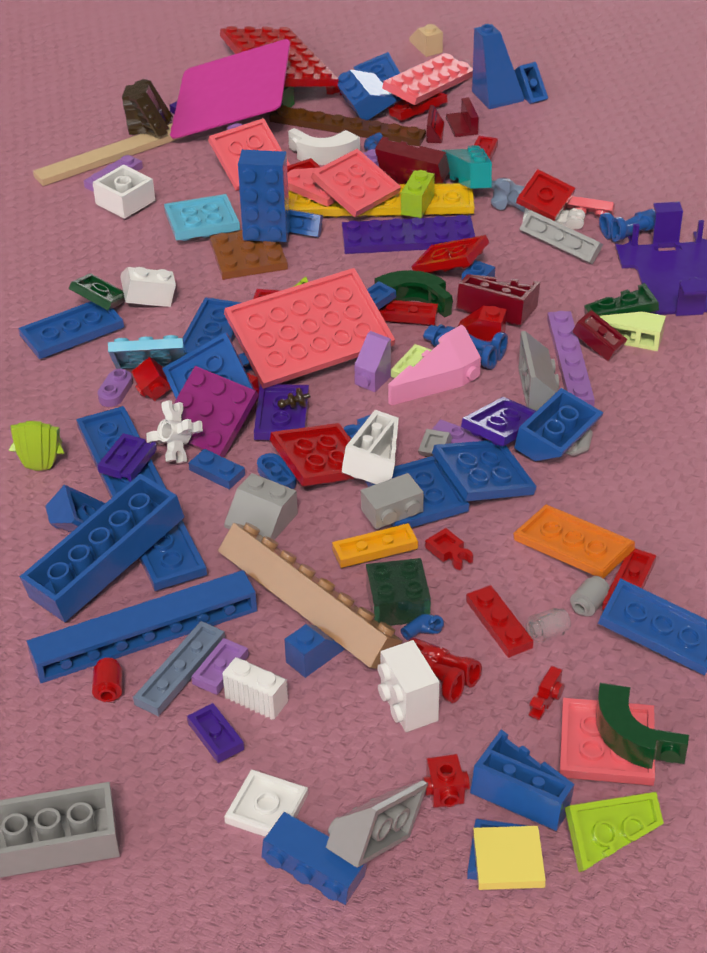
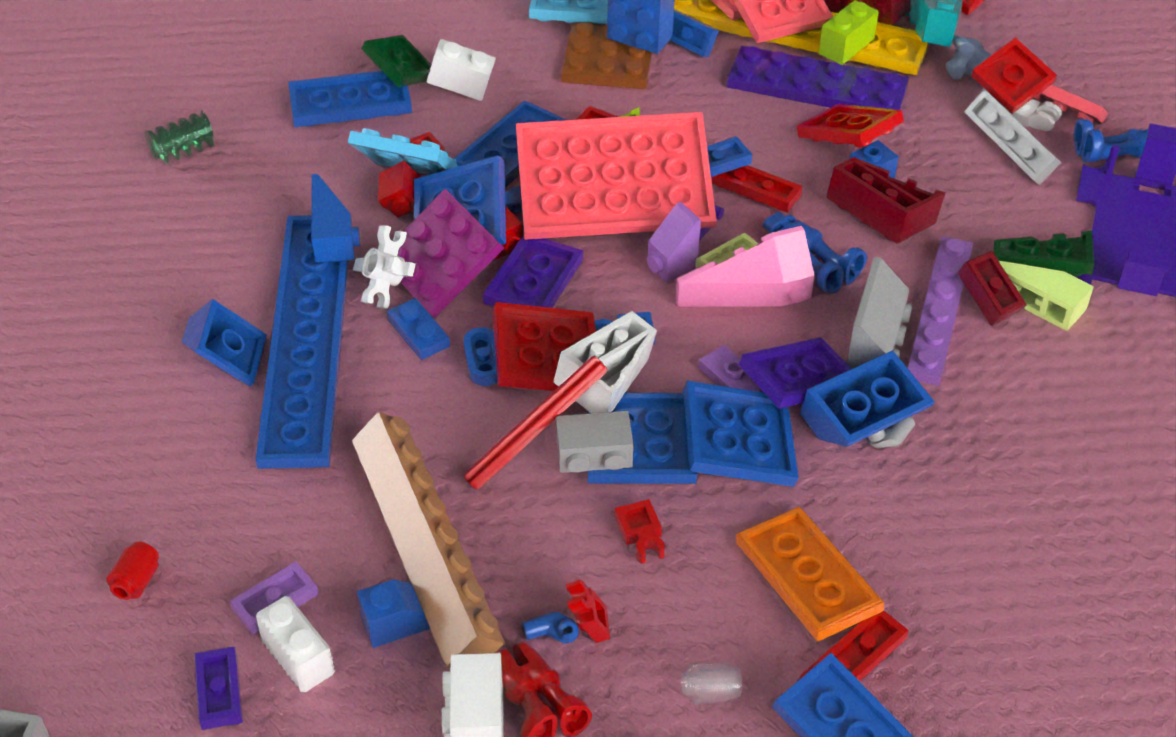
camera: 20 degrees right, 5 degrees up
(36, 444) = (218, 236): lime hair -> none
(102, 547) = (214, 394): blue brick -> none
(115, 388) = (358, 187): medium lavender plate -> none
(116, 412) = (331, 225): none -> blue slope
(127, 457) = (311, 284): dark purple plate -> none
(141, 626) = (213, 512): blue brick -> none
(178, 668) = (222, 583): sand blue plate -> none
(263, 505) = (437, 400): light grey slope -> none
(292, 400) = (549, 266): dark brown hair -> none
(346, 499) = (535, 422): none -> axle
(374, 545) = (549, 494): light orange plate -> none
(397, 591) = (536, 568): clear green brick -> none
(419, 287) = (788, 155): dark green arch -> none
(432, 438) = (699, 371): light grey plate -> none
(445, 608) = (589, 611): none -> red plate
(485, 322) = (849, 229): red slope -> none
(499, 621) = (654, 654): red plate -> none
(589, 596) = (787, 660): light grey brick -> none

